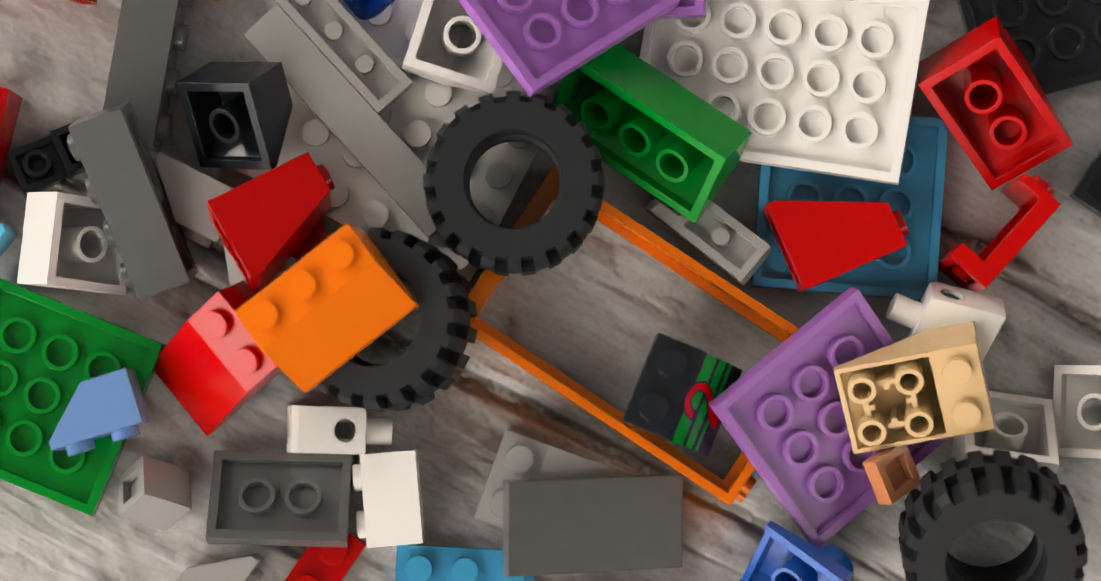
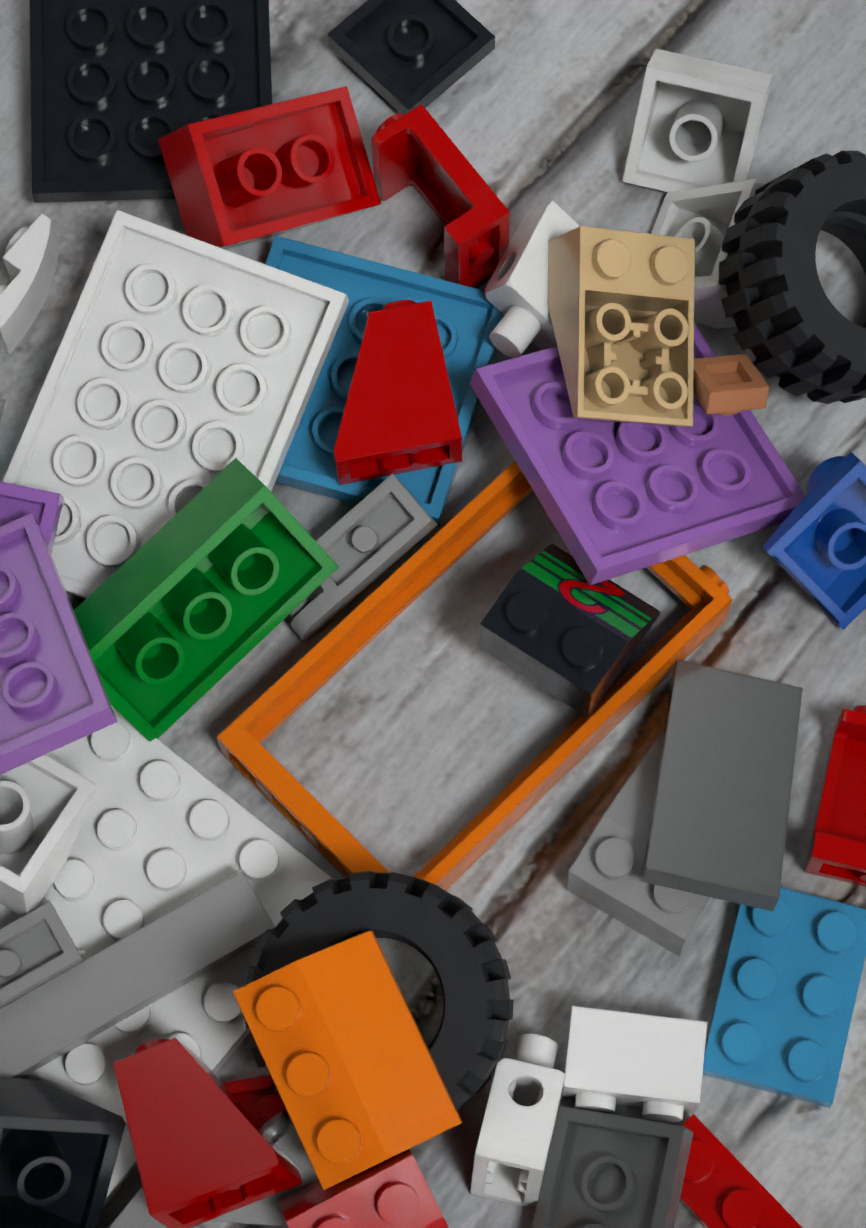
camera: 75 degrees left, 15 degrees down
(514, 120) = (214, 697): black tyre -> none

